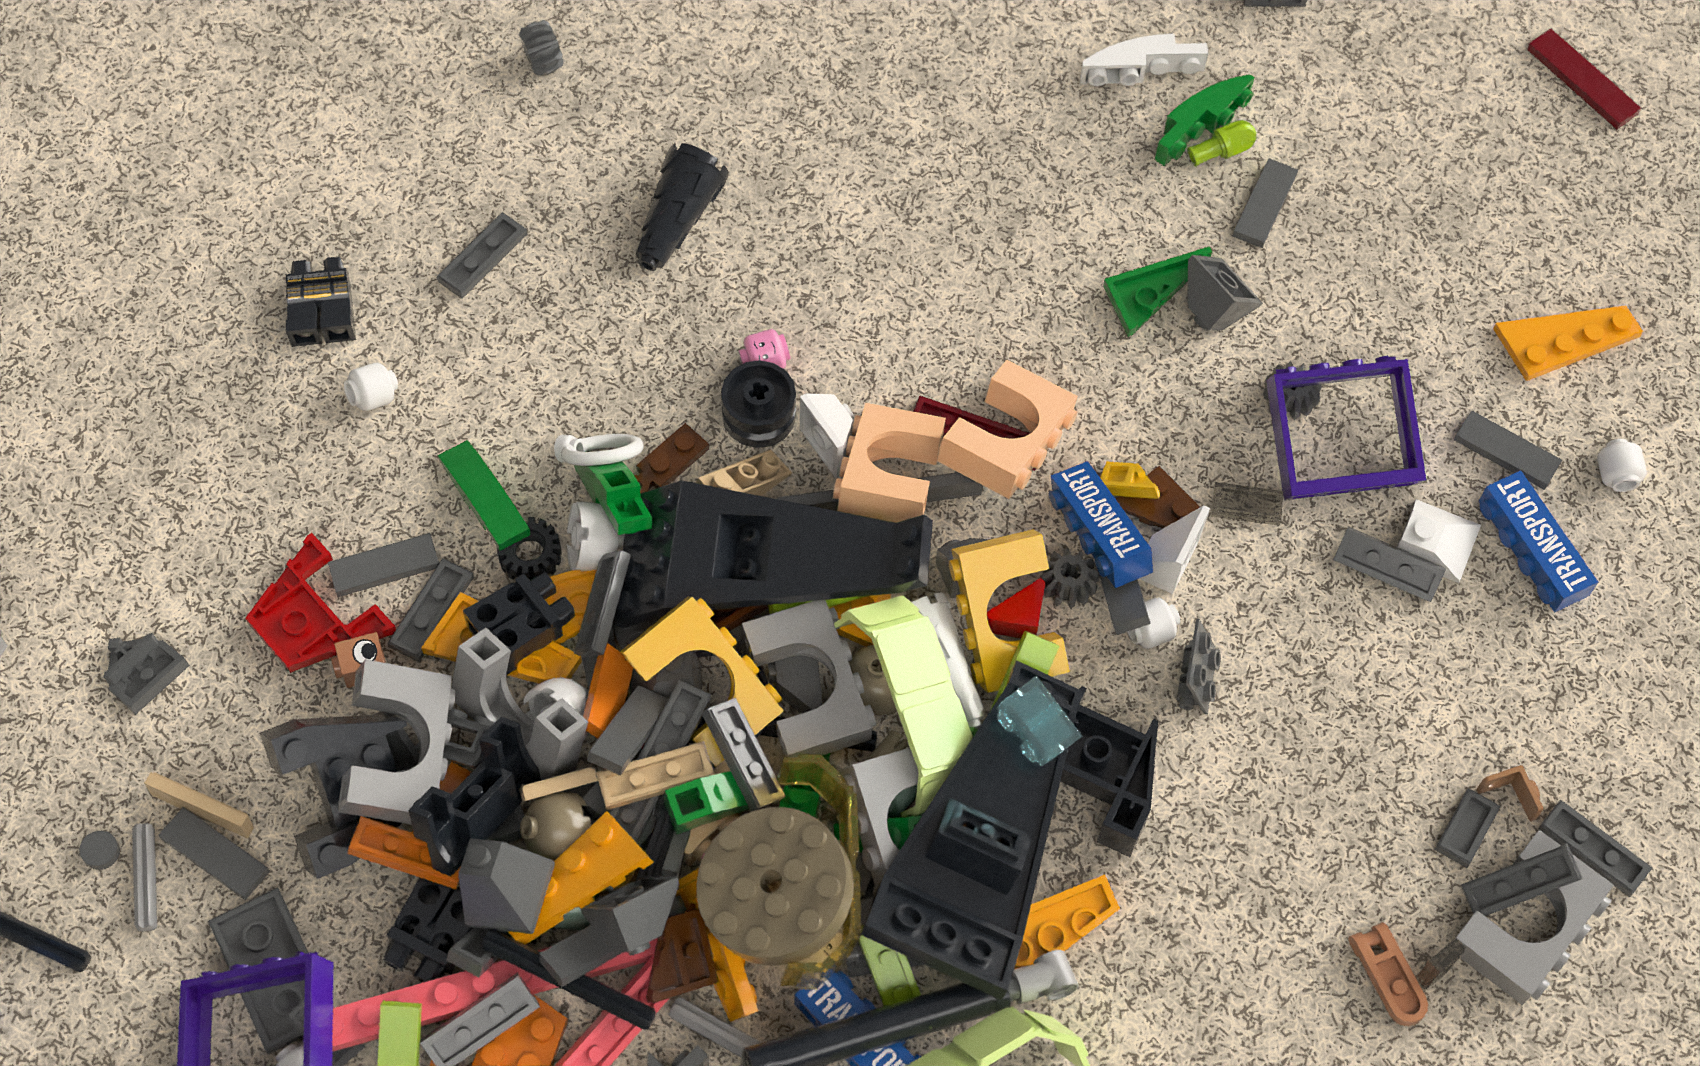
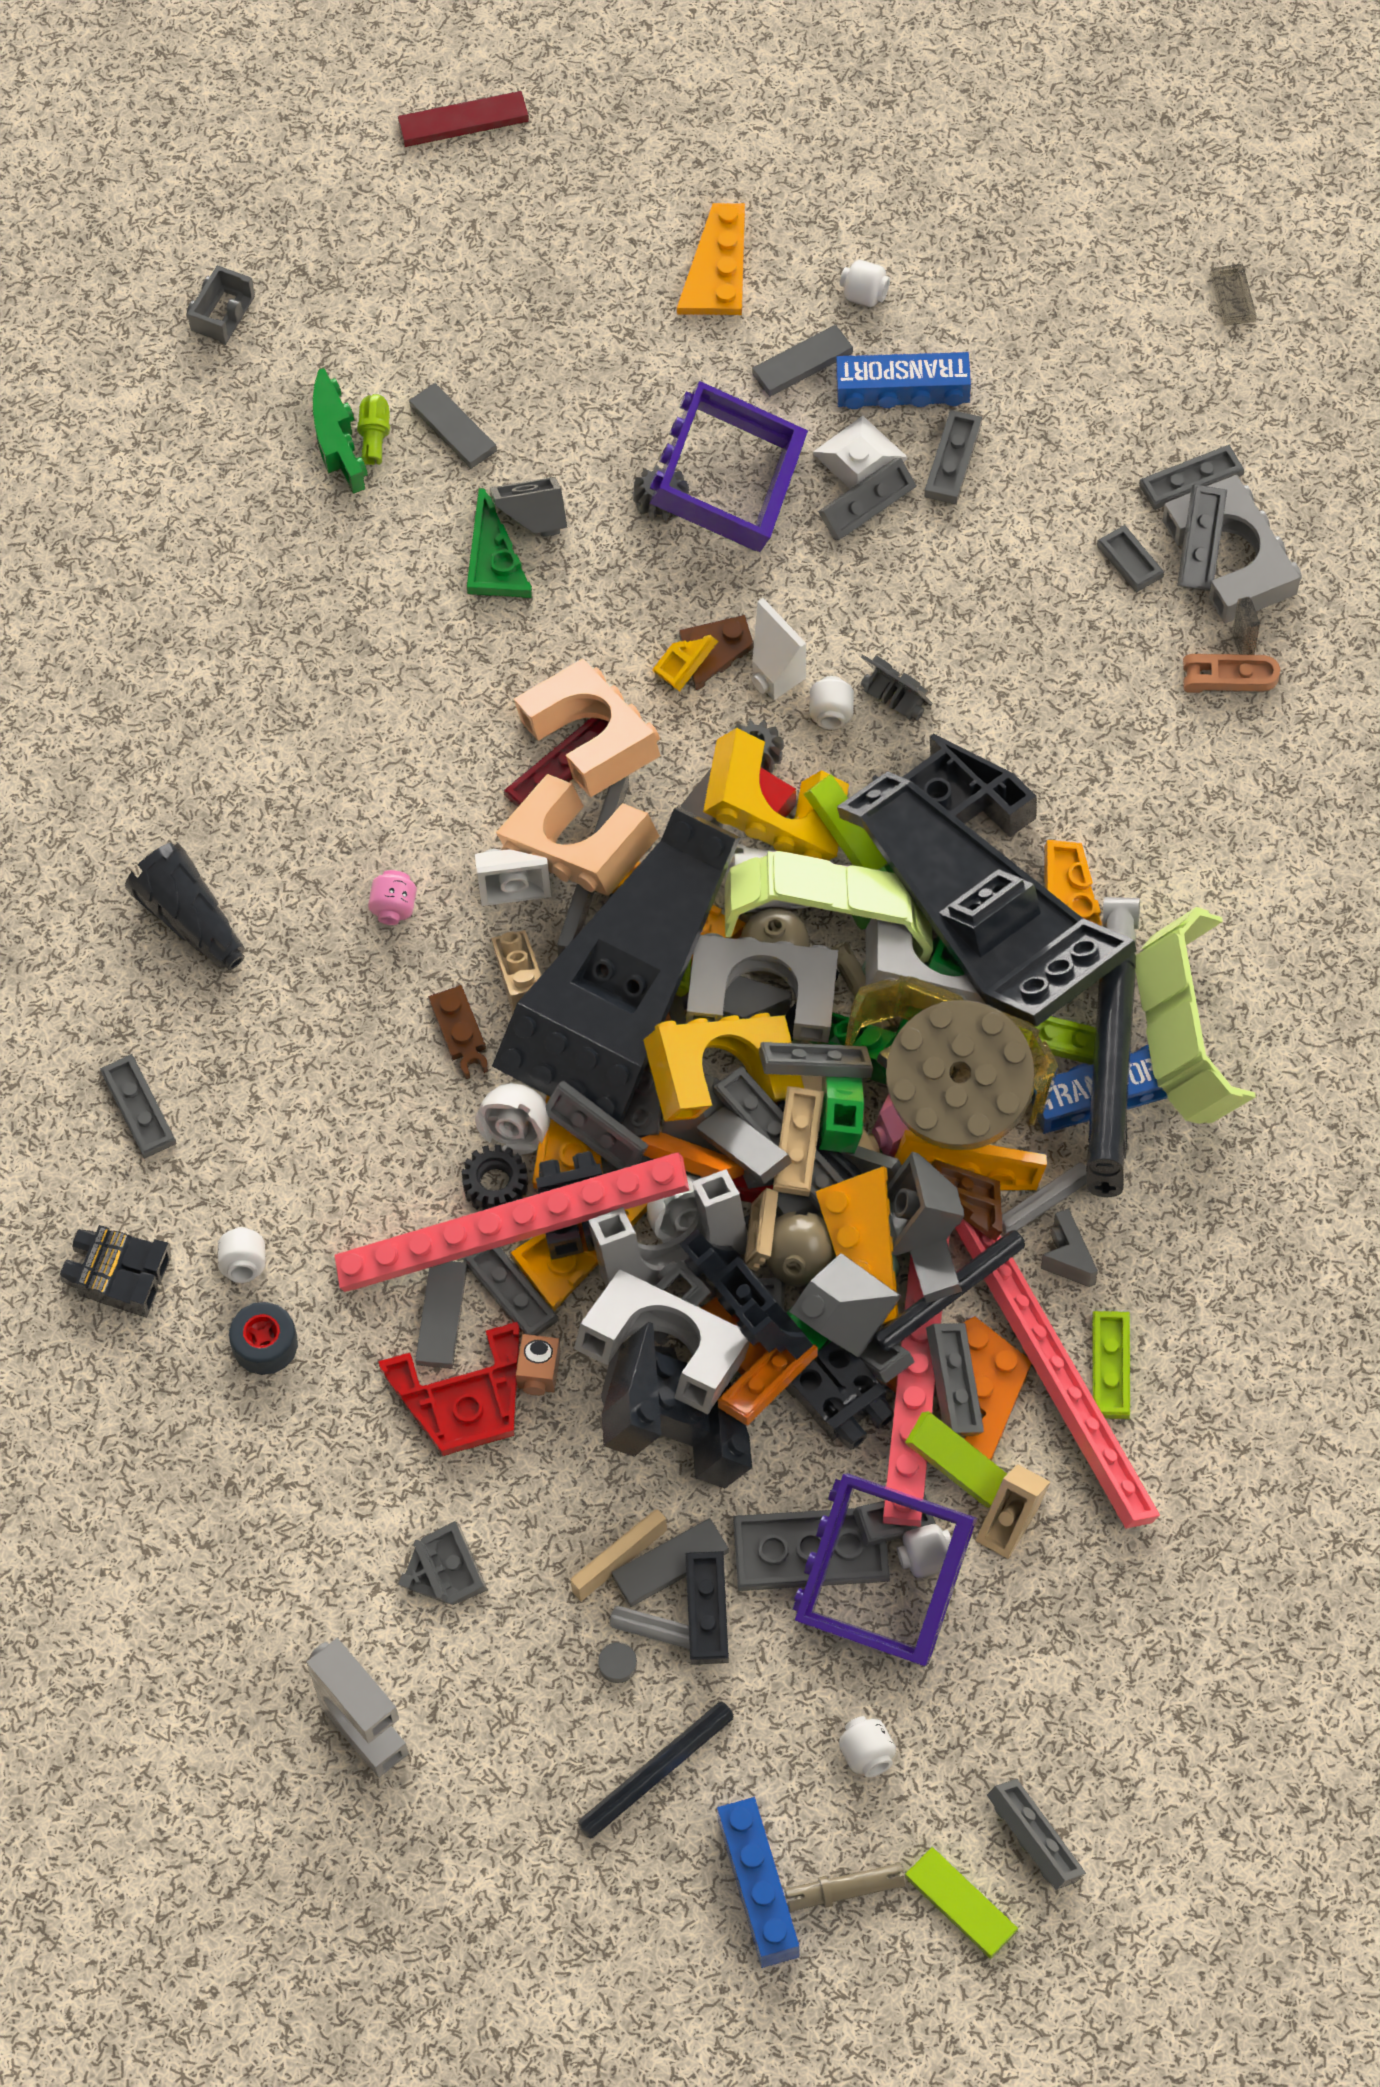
camera: 60 degrees left, 0 degrees up
(170, 900) = (707, 1608): none -> black tile
(299, 436) = (258, 1325): none -> black wheel
(476, 578) = (511, 1222): none -> coral plate
(484, 495) = (414, 1195): green slope -> none
(574, 450) = (405, 1102): white piece -> none
(618, 494) = (480, 1068): green slope -> none
(758, 404) = (446, 923): black wheel -> none
(1037, 722) = (911, 808): clear light blue brick -> none
(1101, 524) = (722, 694): blue brick -> none
(1125, 605) = (793, 708): dark grey tile -> none
(1130, 60) = (241, 450): white slope -> none
(1247, 503) = (750, 580): clear smoke tile -> none
(1481, 620) = (953, 457): none -> dark grey plate
(1524, 788) = (1121, 500): medium nougat bracket -> none

